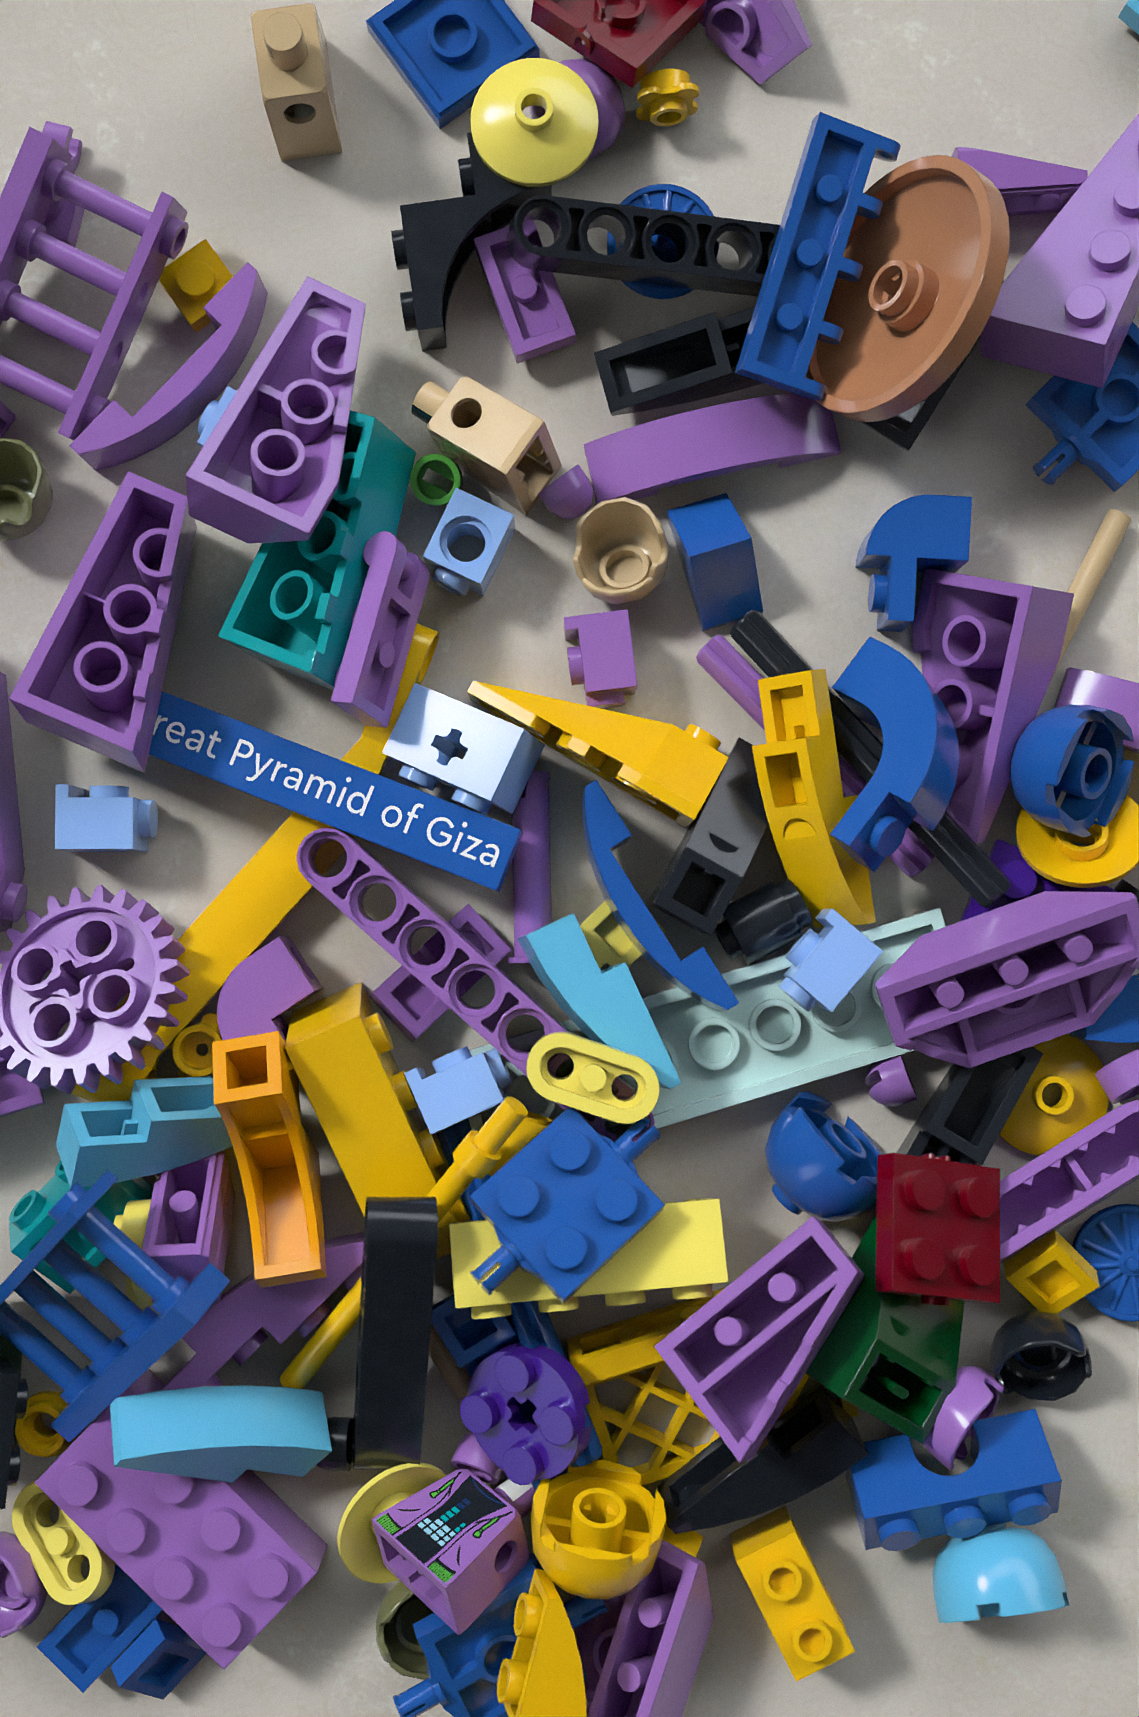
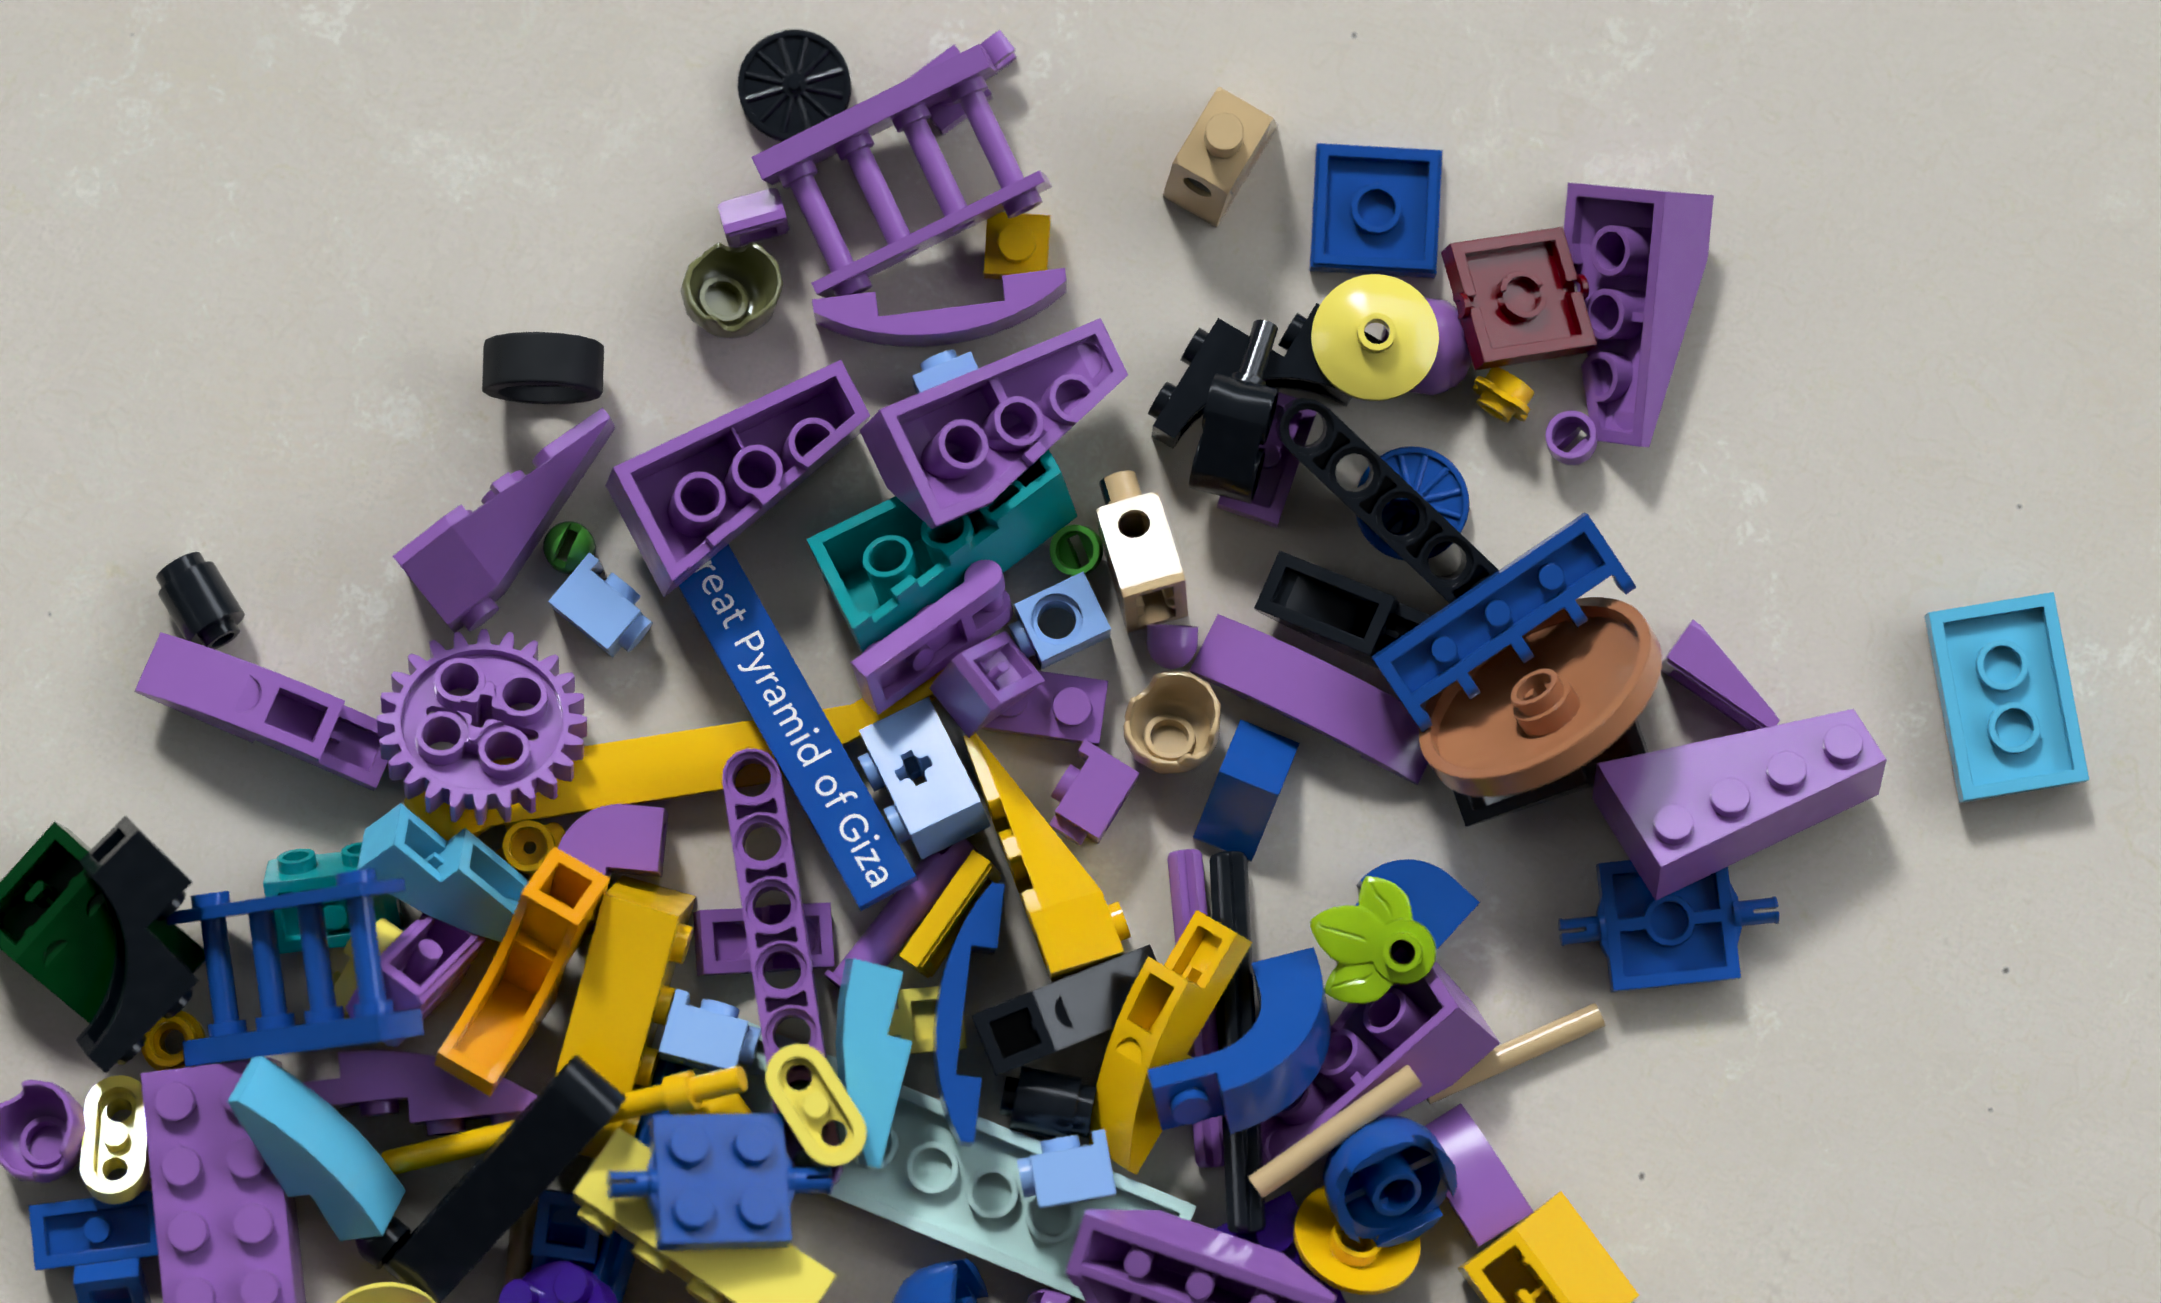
camera: 40 degrees right, 5 degrees down
(26, 796) = (580, 548): none -> bright green hinge
(449, 636) = (985, 682): none -> medium lavender slope
(483, 271) = (1237, 422): none -> black beam
(504, 622) = (1058, 709): none -> medium lavender plate
(568, 839) = (942, 924): none -> yellow tile
(733, 89) = (1563, 430): none -> medium lavender hinge
(910, 597) = (1363, 940): none -> lime plate
(1010, 763) = (1335, 1131): none -> tan bar

